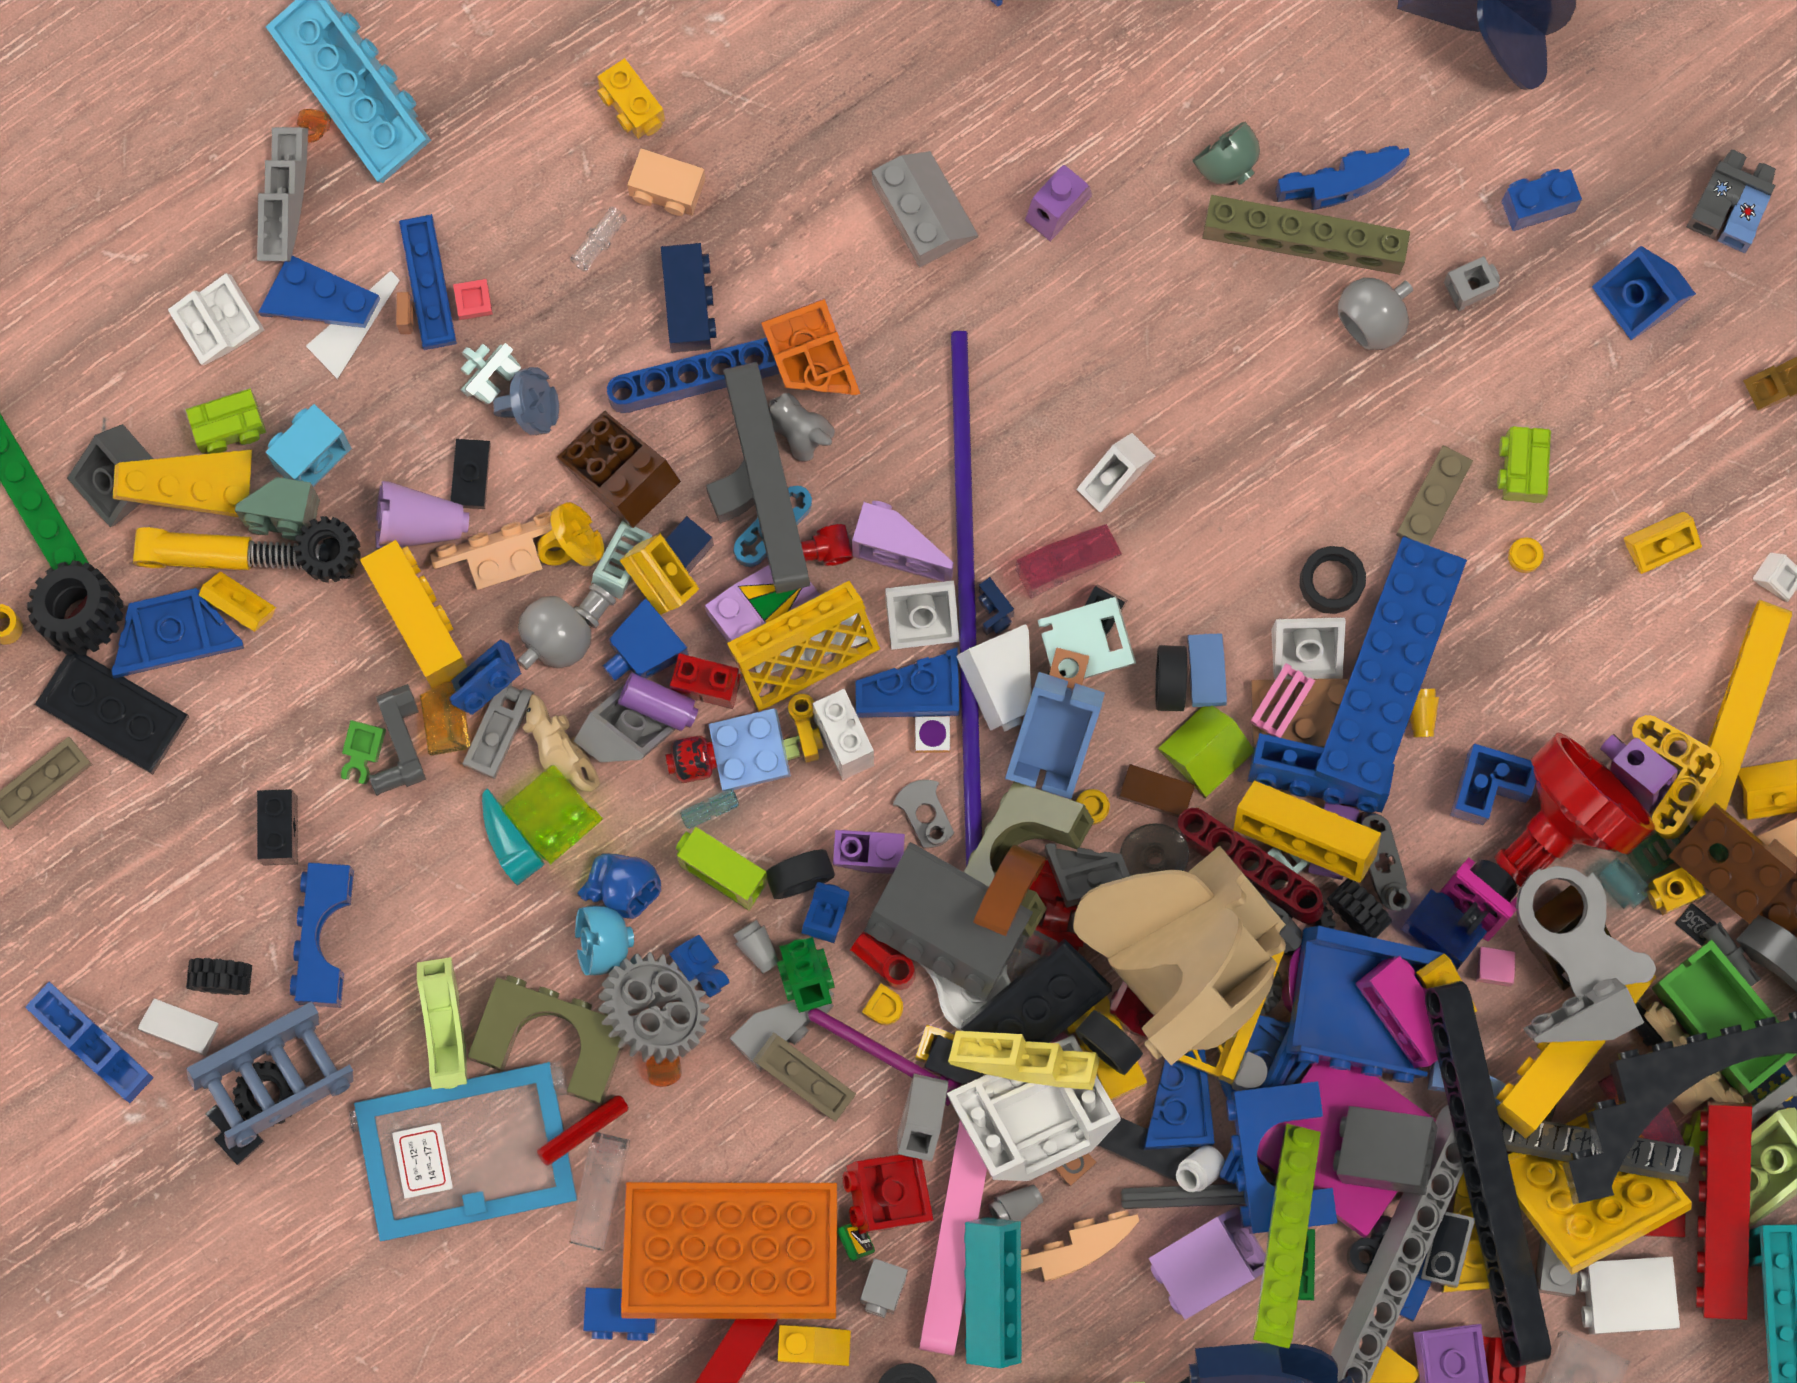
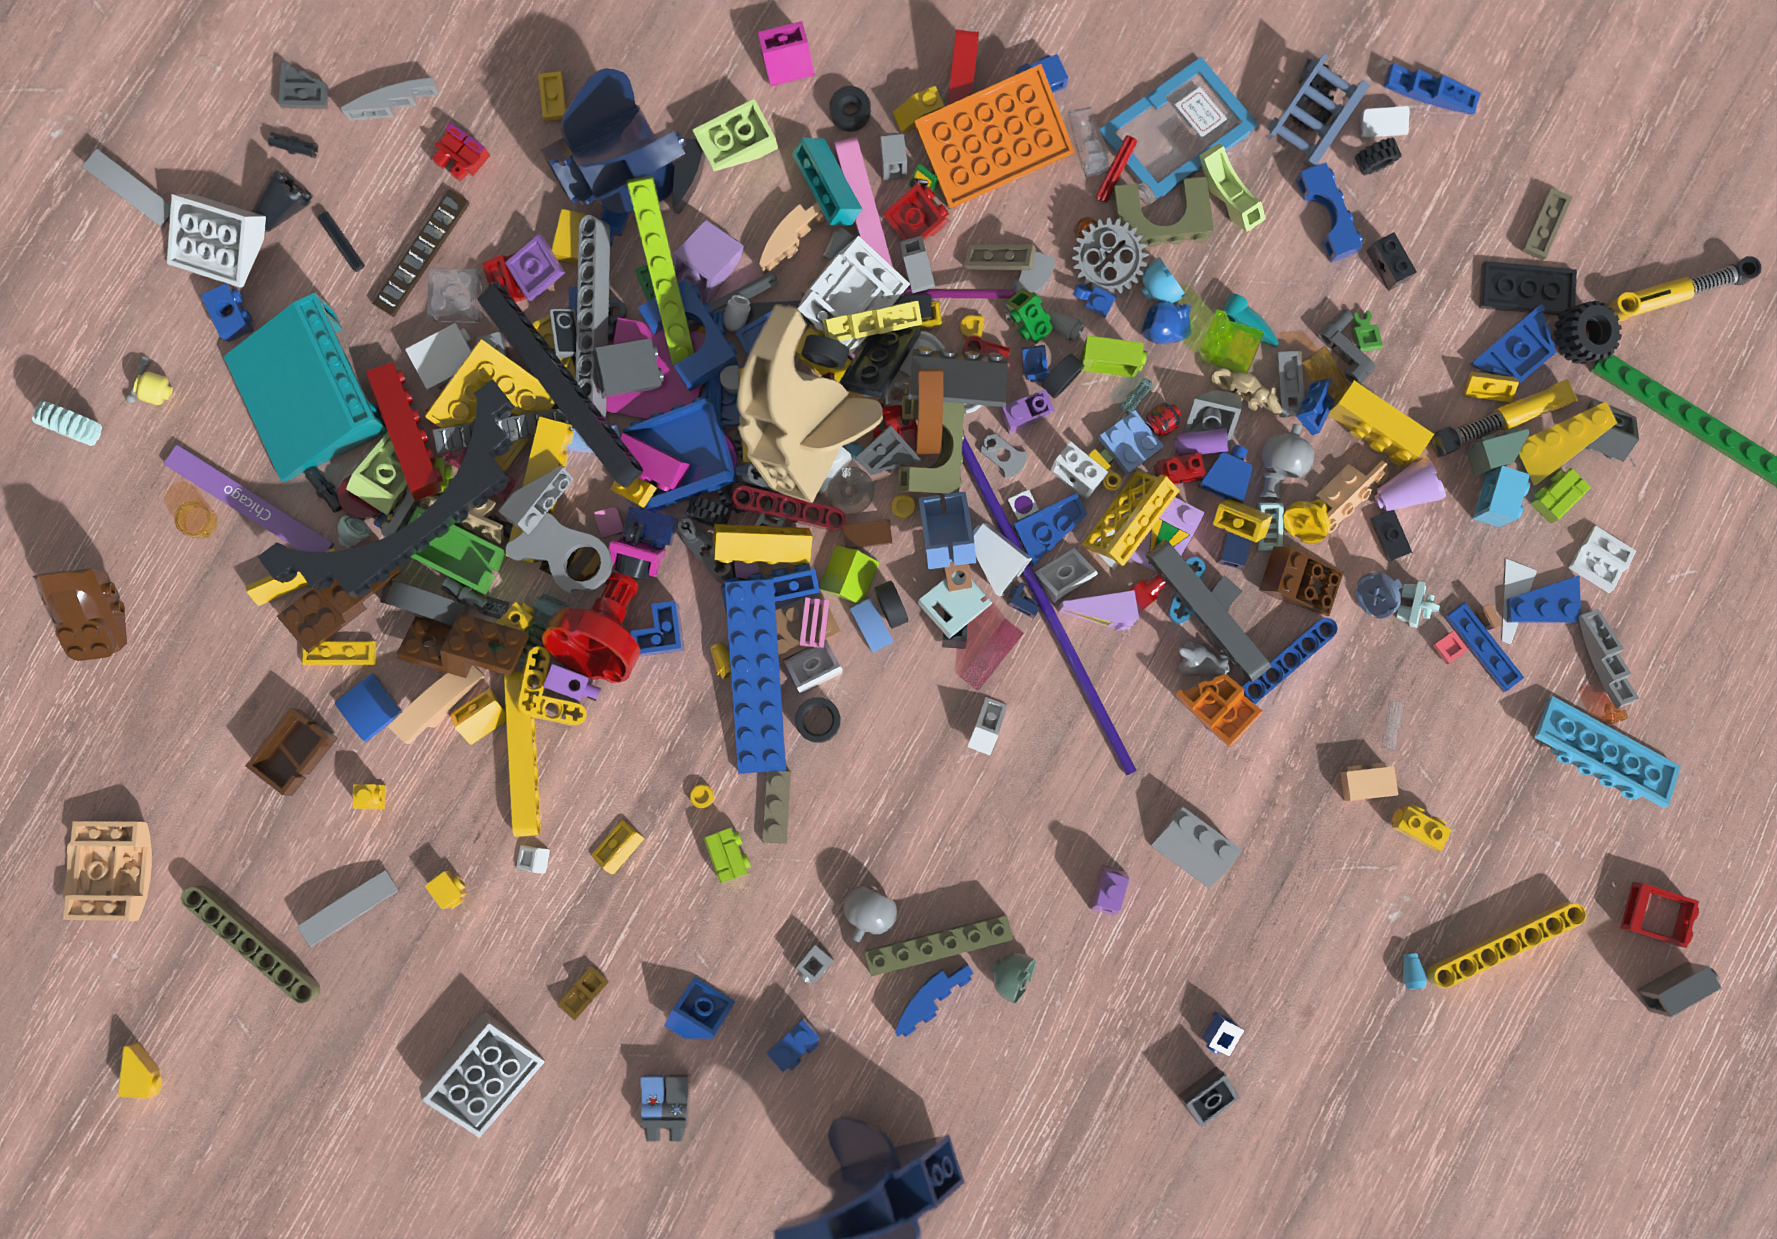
camera: 155 degrees right, 5 degrees up
(316, 532) = (1467, 430): black tyre -> none
(687, 297) = (1316, 712): dark blue brick -> none

